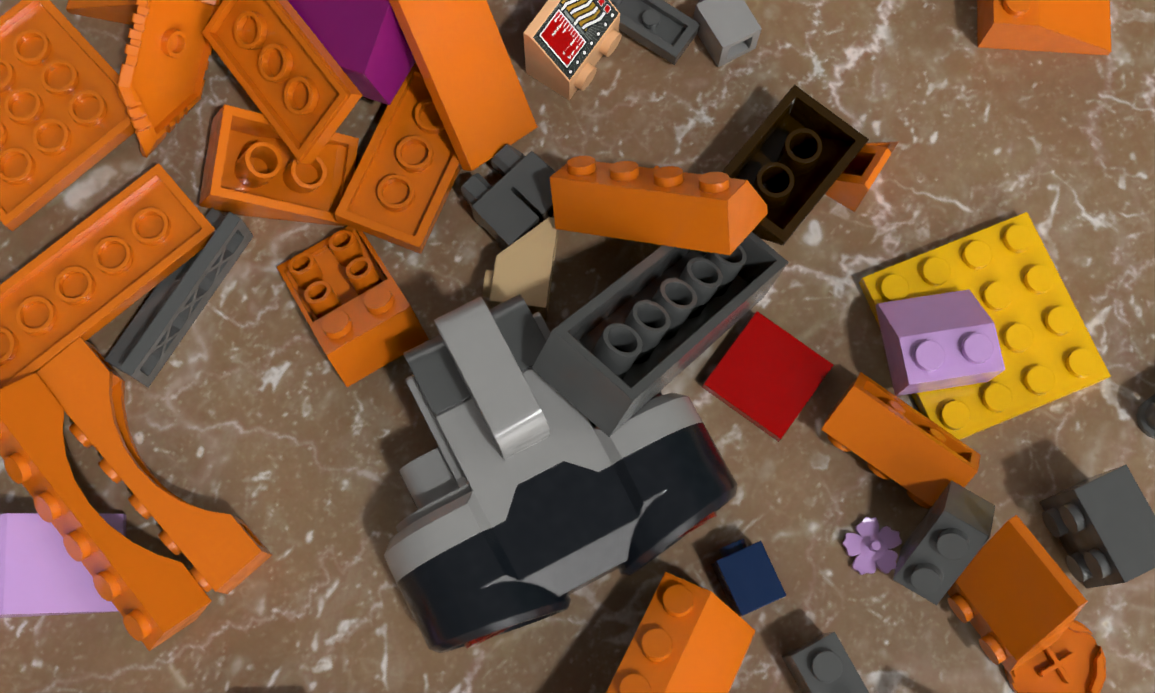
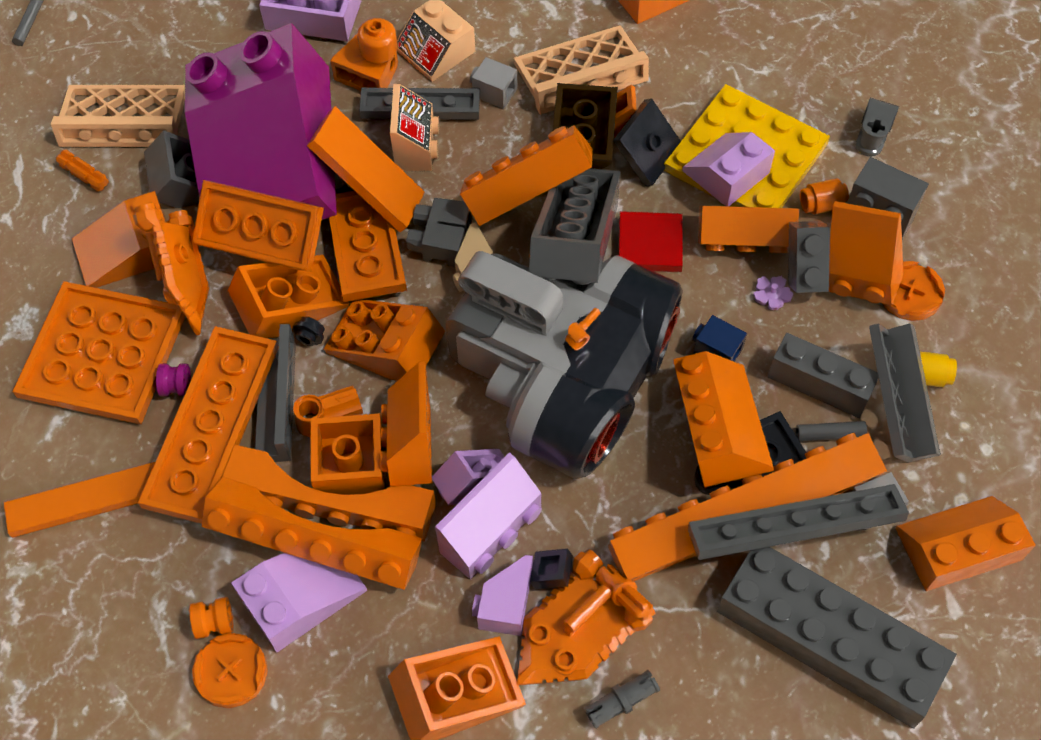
camera: 30 degrees left, 15 degrees down
(75, 197) = (173, 379): none -> magenta wheel
(198, 435) = (347, 454): none -> orange brick
(225, 355) = (337, 403): none -> orange piece
(269, 235) = (309, 331): none -> black plate
(283, 455) = (407, 430): none -> orange slope
(302, 631) = (489, 517): none -> lavender slope
(330, 554) = (464, 472): none -> lavender slope
(533, 490) = (577, 336): none -> orange hand
(851, 98) = (610, 72): none -> light nougat fence
(856, 238) = (647, 142): none -> black plate
(1036, 460) = (821, 196): none -> orange brick

